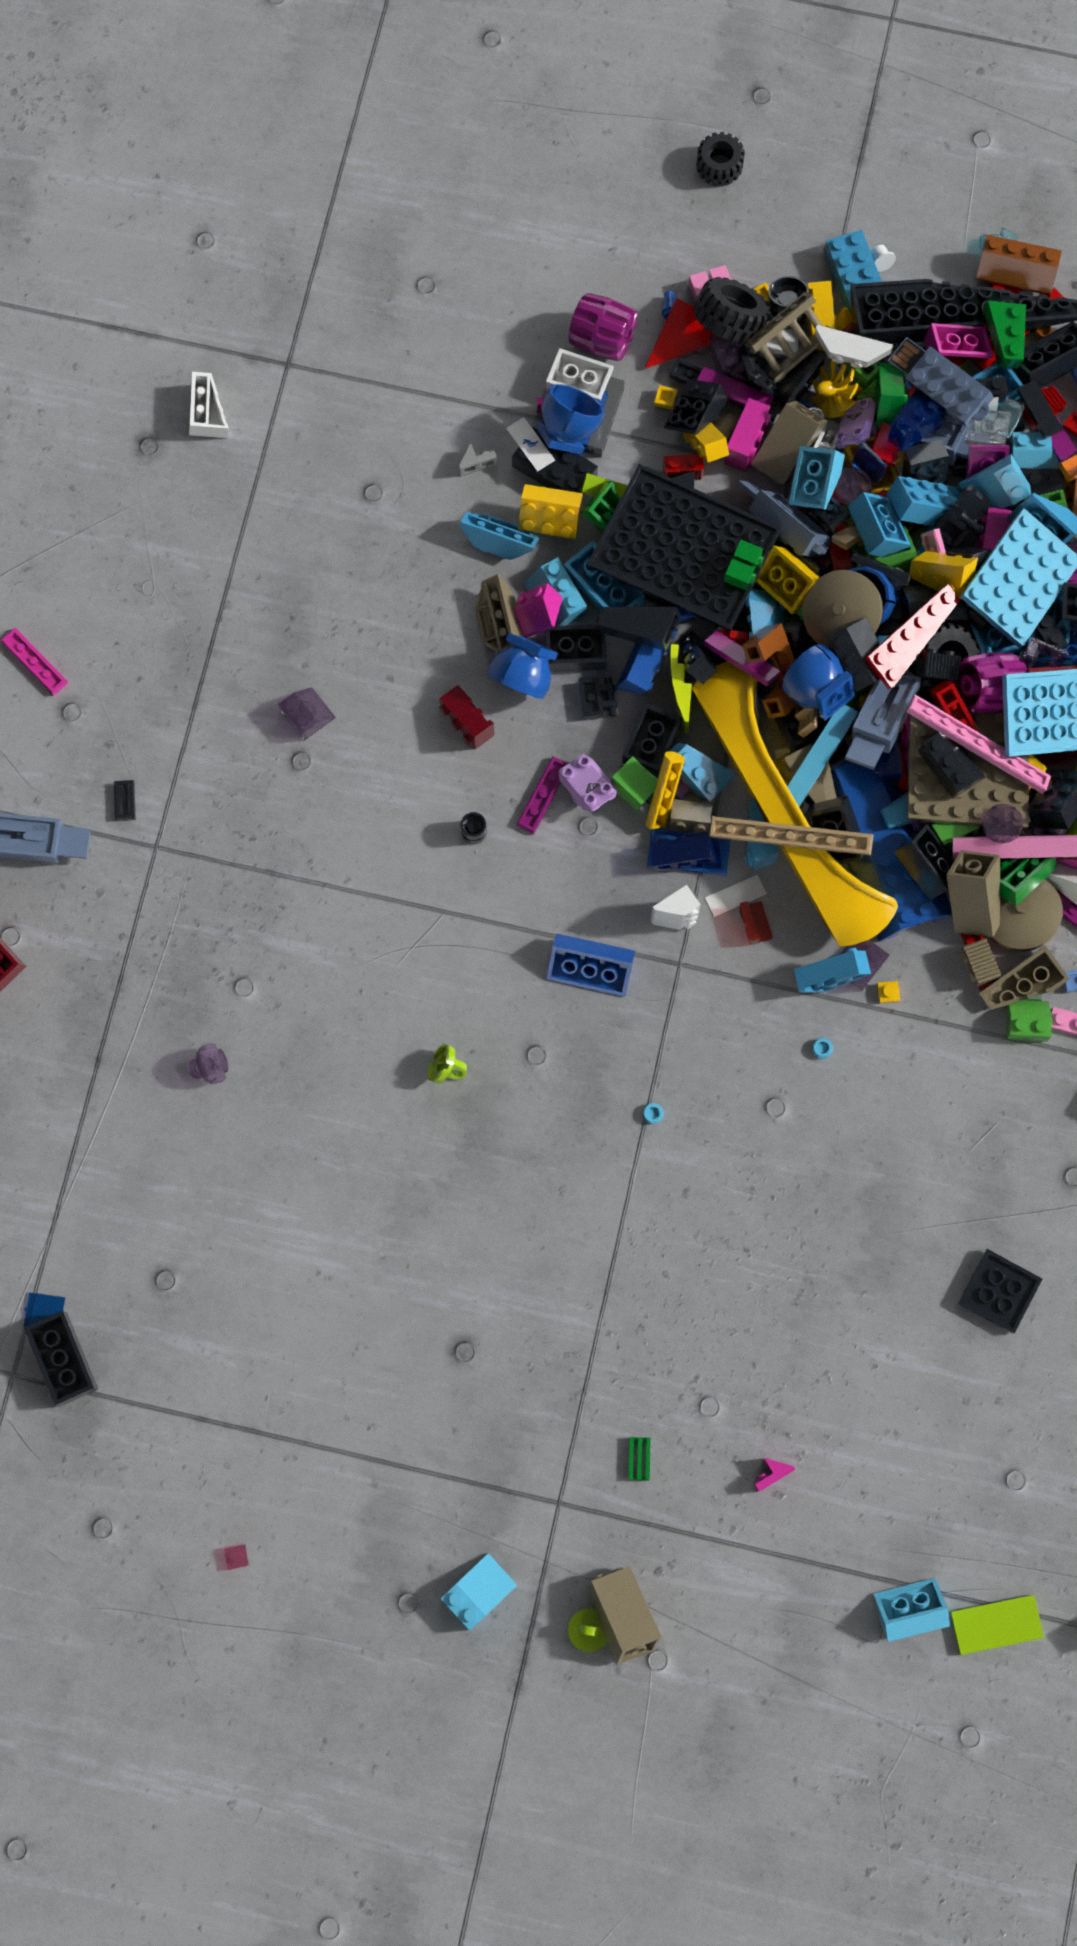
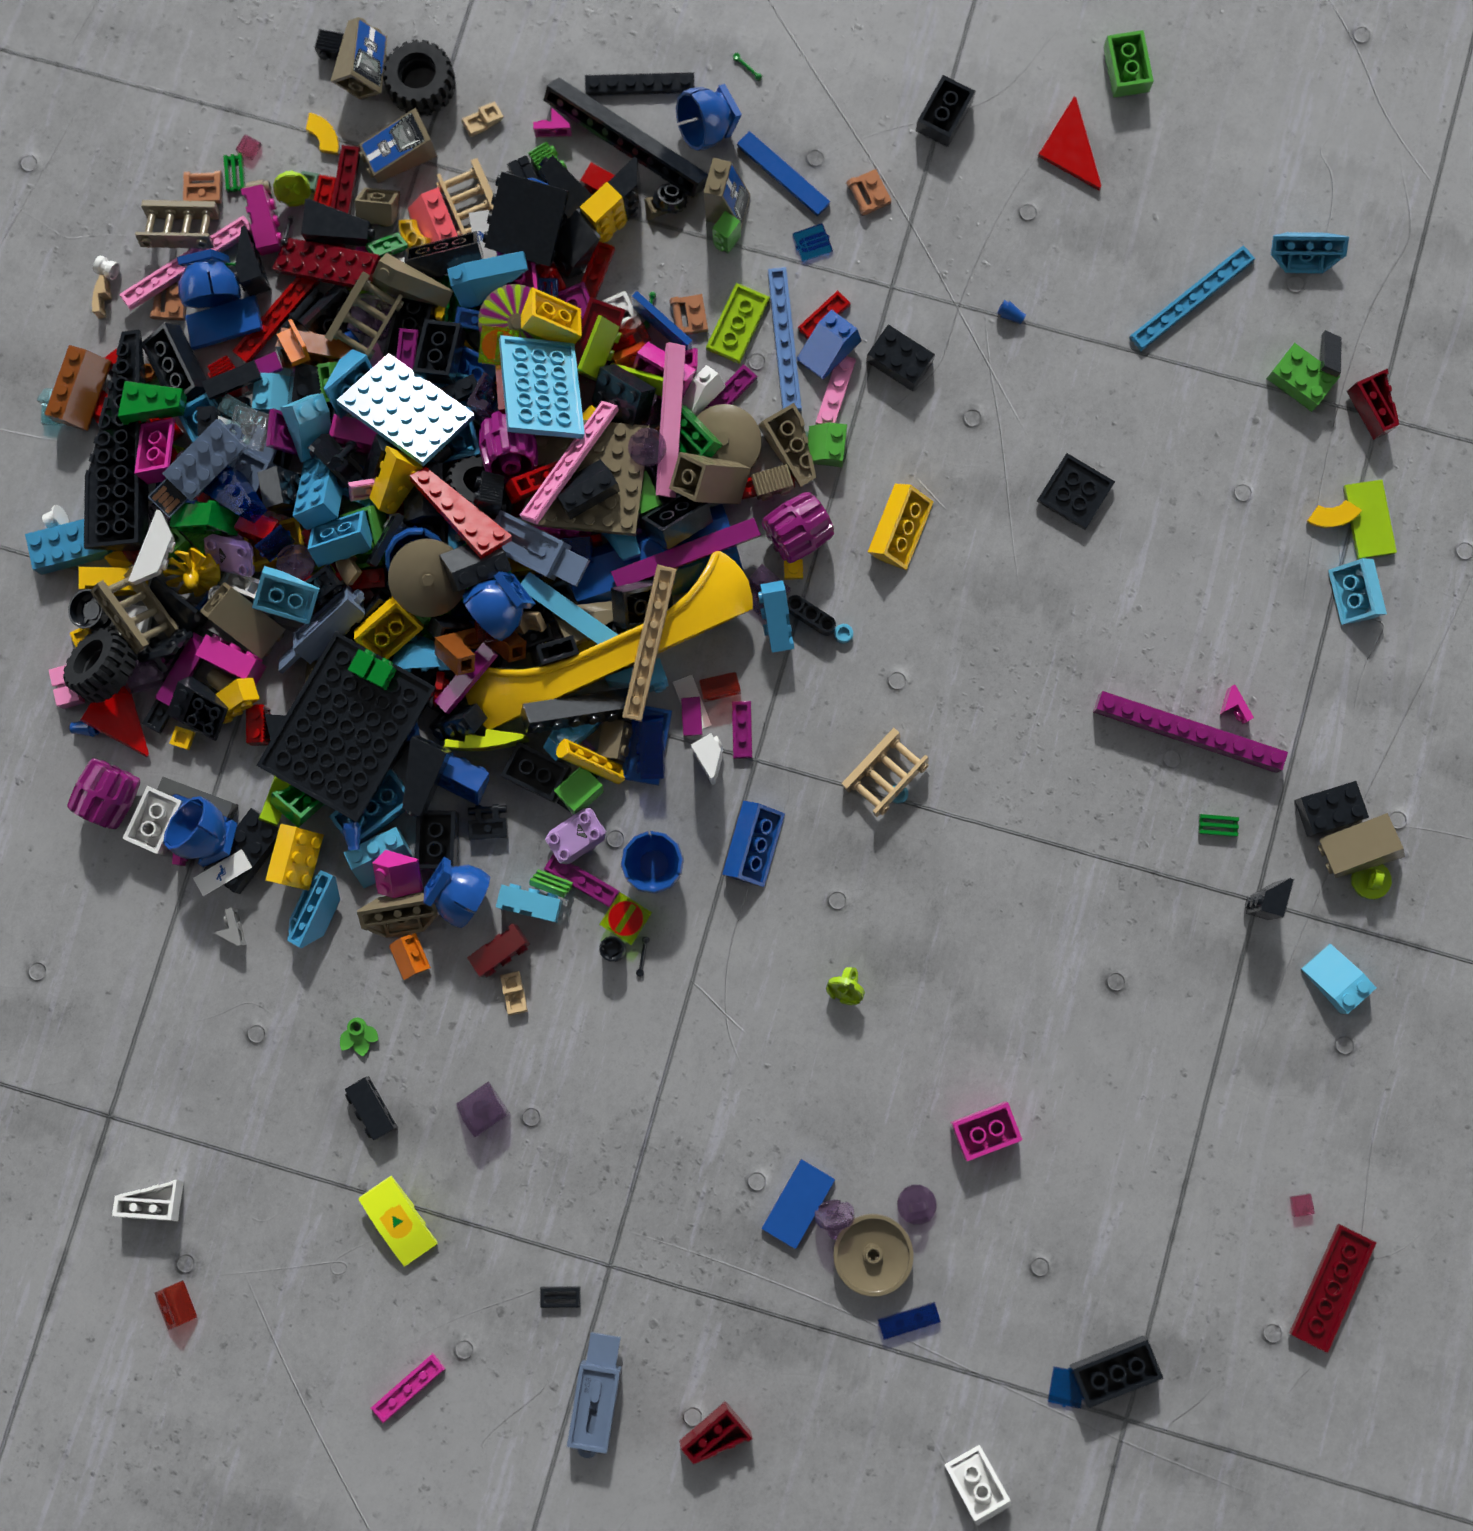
camera: 80 degrees left, 5 degrees up
(108, 1146) = (909, 1320): none -> clear blue tile
(109, 440) = (175, 1305): none -> clear red panel
(151, 1590) = (1332, 1288): none -> dark red plate
(173, 1105) = (873, 1255): none -> dark tan dish
(195, 638) = (397, 1220): none -> neon yellow slope
(225, 1149) = (916, 1204): none -> clear purple tile
(228, 1030) = (798, 1203): none -> blue tile
(302, 1215) = (986, 1131): none -> dark pink brick
(304, 605) = (370, 1108): none -> black brick
(372, 589) = (360, 1039): none -> bright green plate
(424, 736) = (514, 993): none -> tan slope
(451, 858) = (645, 940): none -> black hinge
(457, 631) = (409, 956): none -> orange panel
(506, 839) = (625, 918): none -> piece
(517, 742) = (529, 902): none -> medium azure wedge
(540, 764) = (551, 883): none -> bright green tile
(559, 1508) = (1270, 901): none -> black slope
(563, 857) = (652, 862): none -> blue plate
(575, 562) = (352, 835): none -> blue cone
(664, 1582) = (1331, 808): none -> black brick
(692, 1088) = (879, 754): none -> tan fence
(711, 947) = (742, 729): none -> magenta tile
(715, 767) = (573, 711): none -> black brick
(721, 895) = (691, 716): none -> magenta tile
(739, 1423) = (1190, 732): none -> magenta brick
(775, 743) = (554, 651): none -> black slope
(843, 1003) = (806, 607): none -> black beam
(895, 877) = (688, 552): none -> magenta tile
(931, 989) = (798, 527): none -> magenta wheel
(944, 1102) = (900, 526): none -> yellow slope
(996, 1583) = (1335, 516): none -> yellow tile

